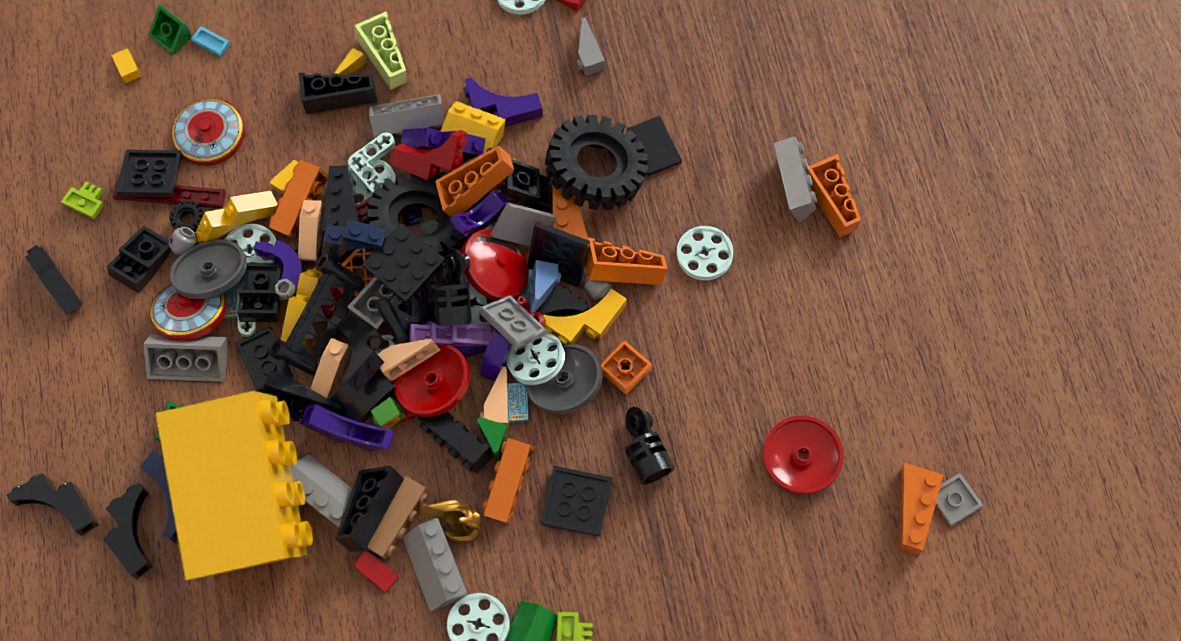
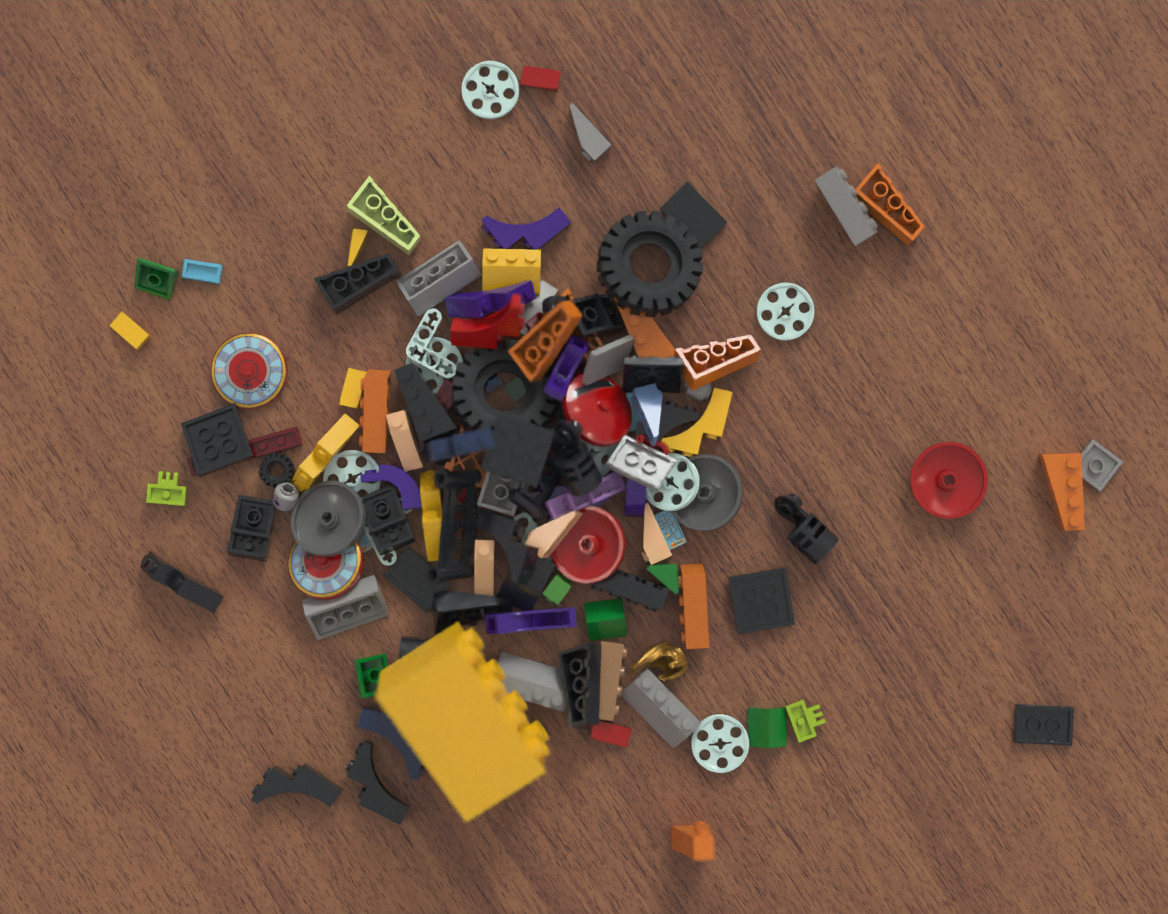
camera: 25 degrees left, 20 degrees up
(285, 288) = (412, 512): light grey tile -> none
(420, 462) = (605, 619): none -> green slope
(625, 379) = (767, 453): orange brick -> none

